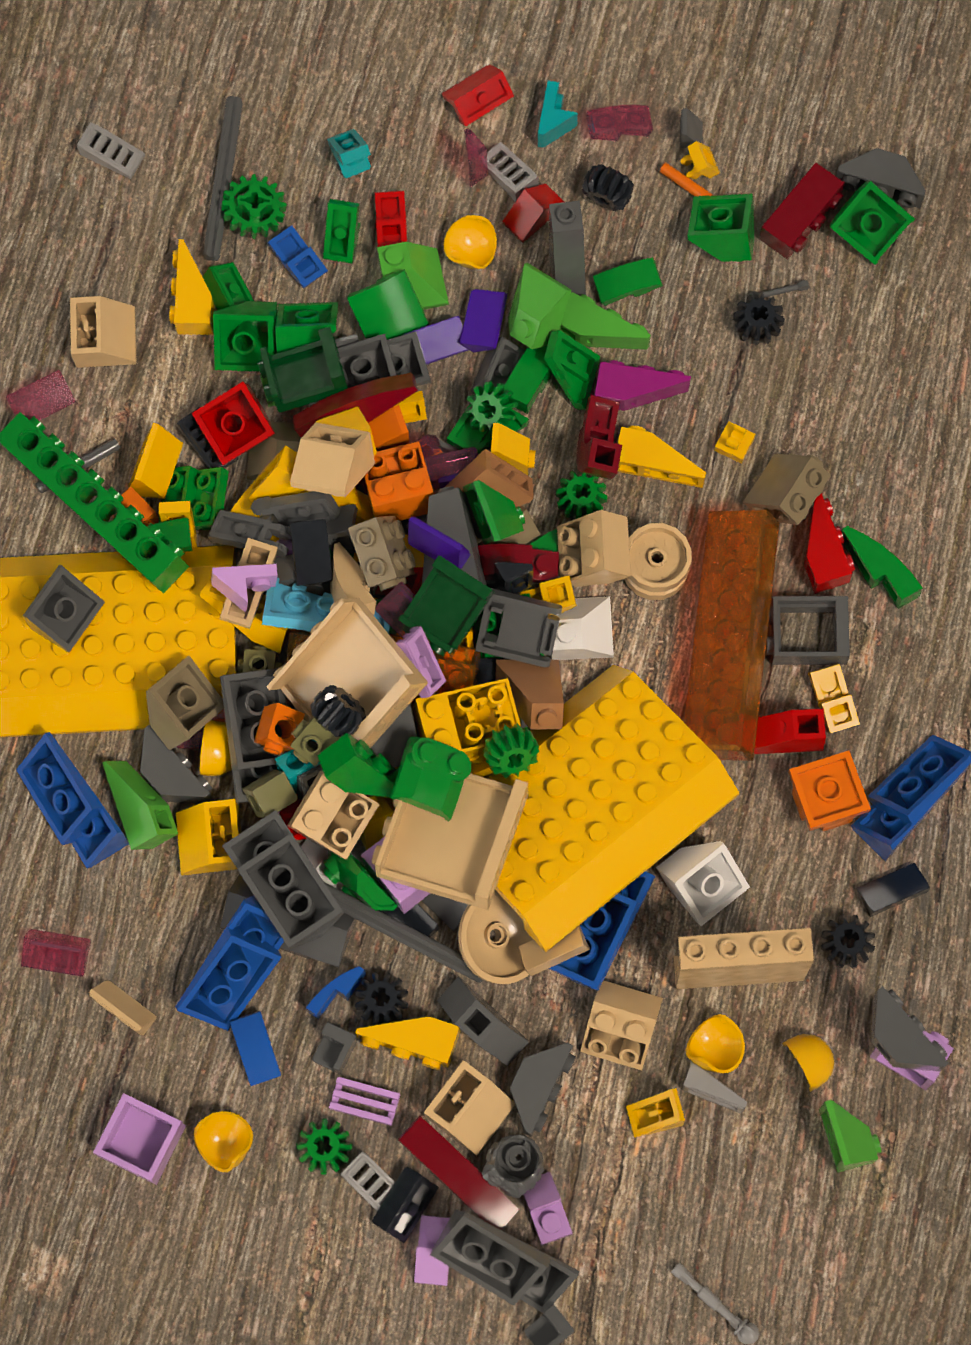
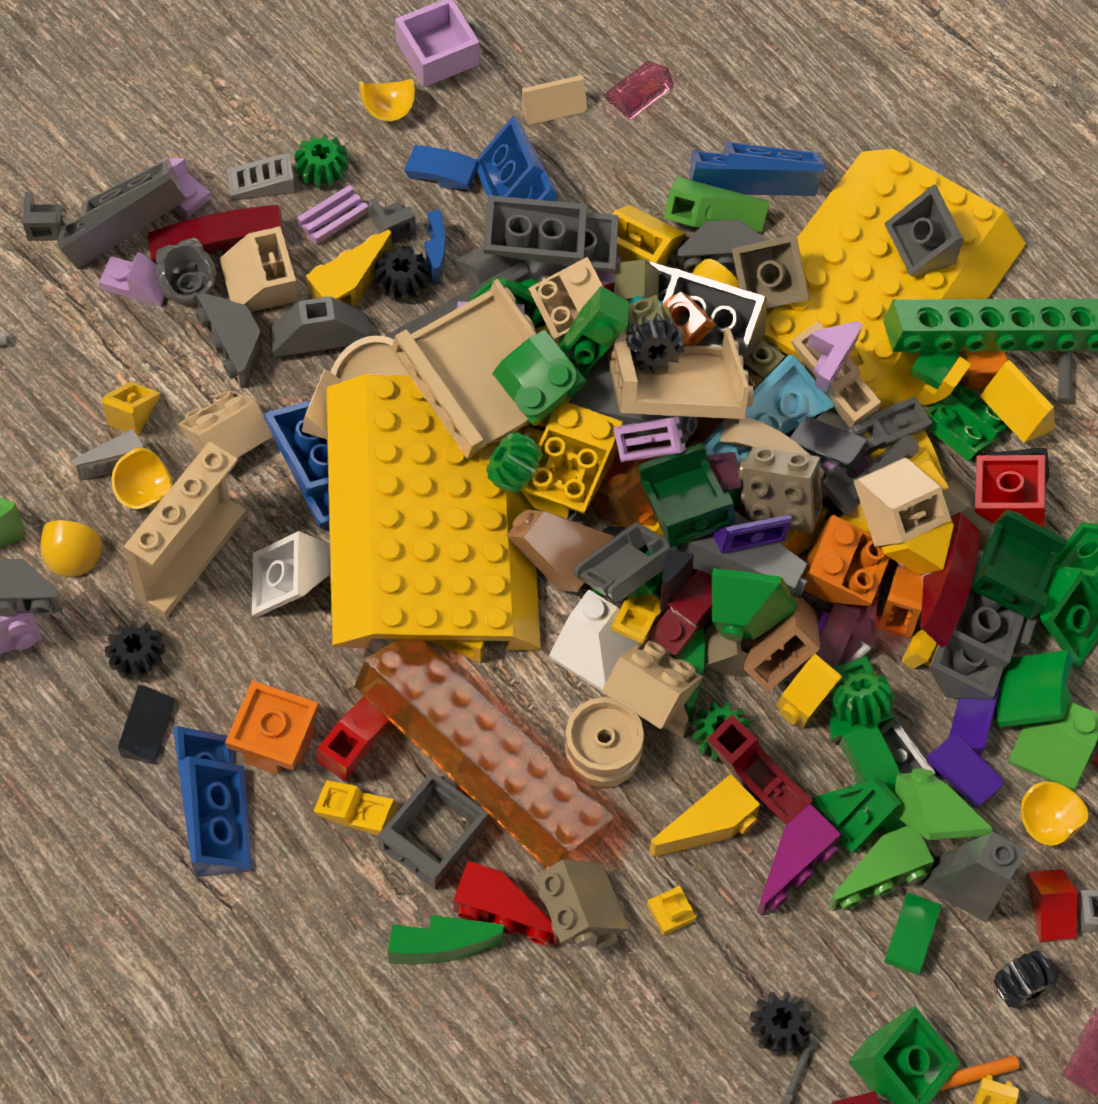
camera: 120 degrees right, 10 degrees down
(405, 1204) = (227, 183): black slope -> none

